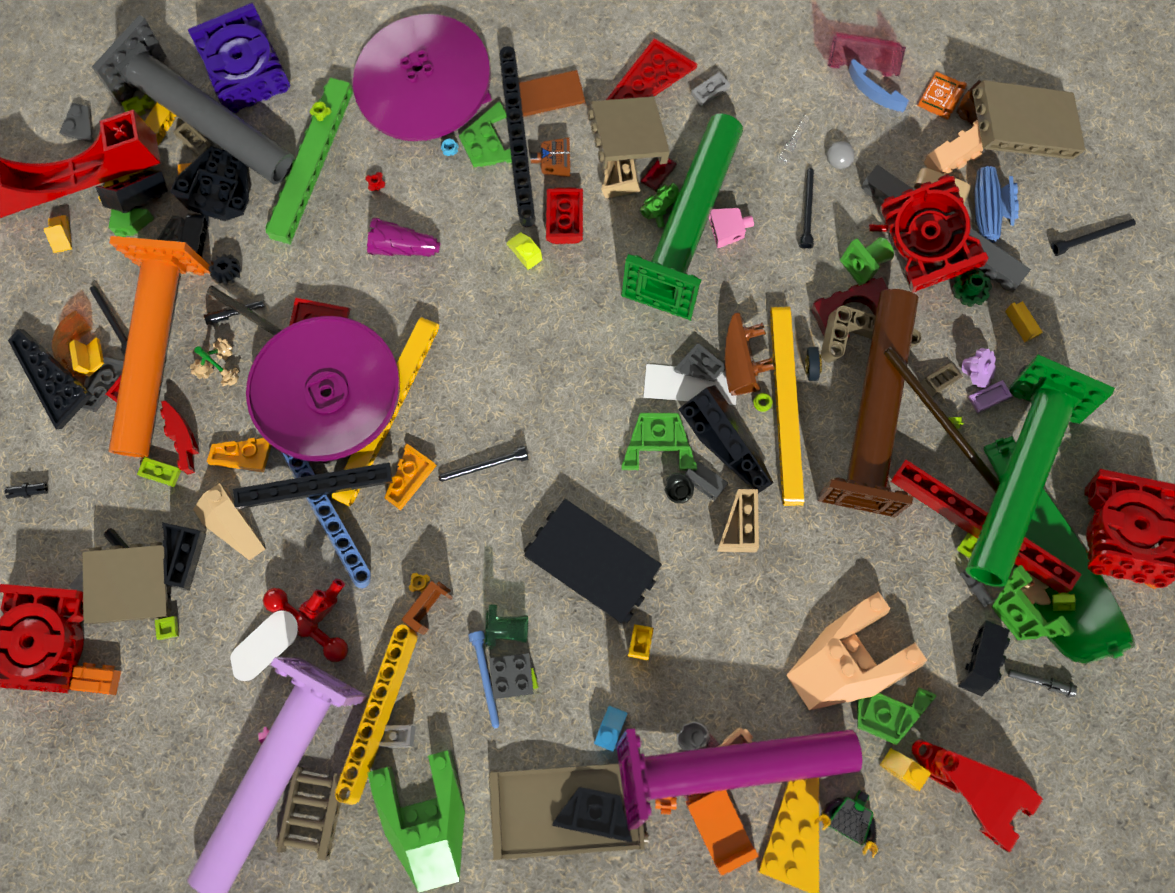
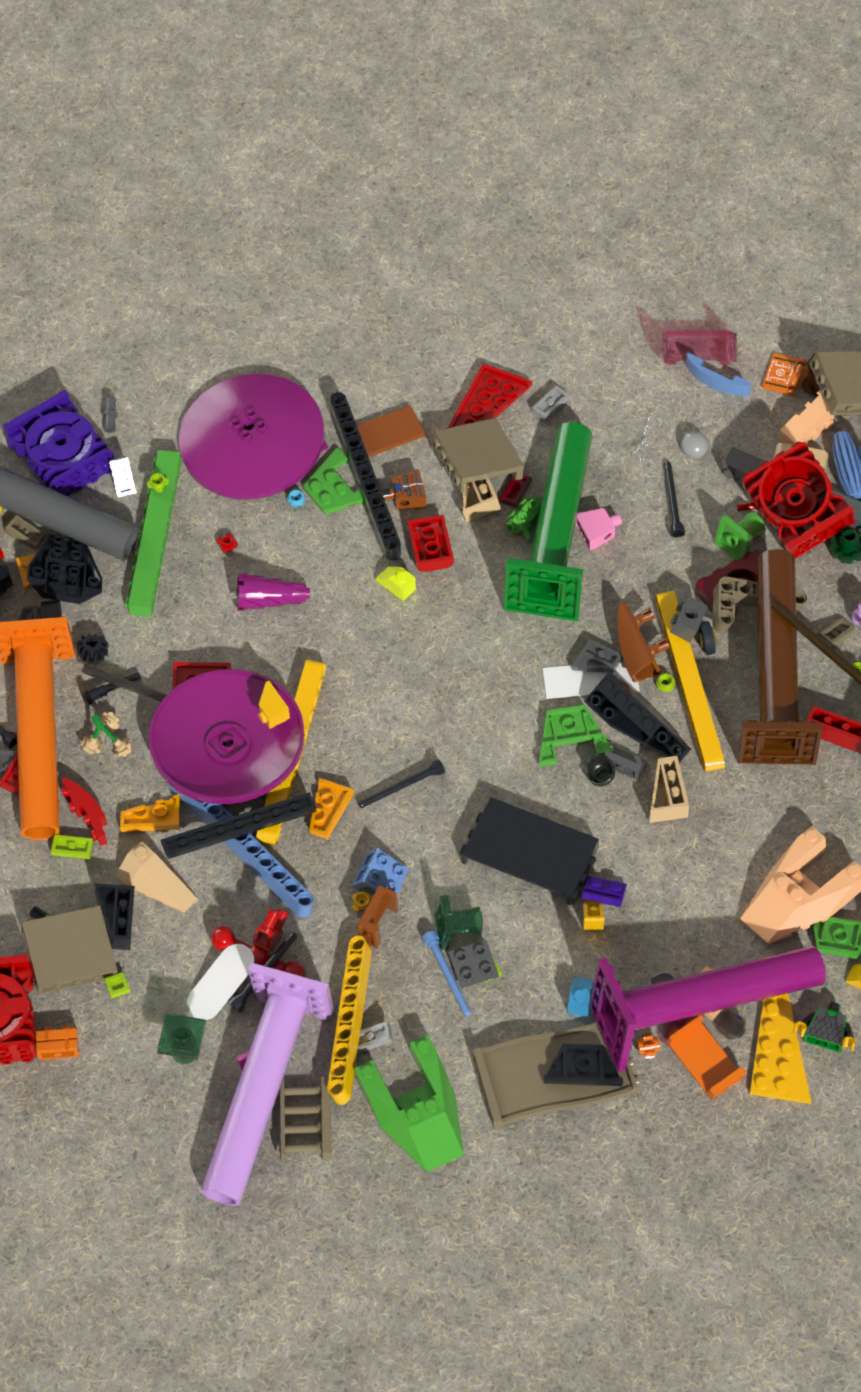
camera: 15 degrees left, 15 degrees down
(205, 708) = (181, 1037): none -> clear green plant
(270, 670) = (239, 1000): none -> black piece
(291, 98) = (122, 476): none -> tile
(297, 34) = (110, 414): none -> dark grey pin
(368, 367) = (272, 707): none -> yellow slope
(442, 559) = (380, 870): none -> medium blue bracket
(656, 620) = (604, 891): none -> dark purple plate
(754, 797) = (730, 1024): none -> clear smoke head
(805, 335) = (688, 619): none -> dark grey brick

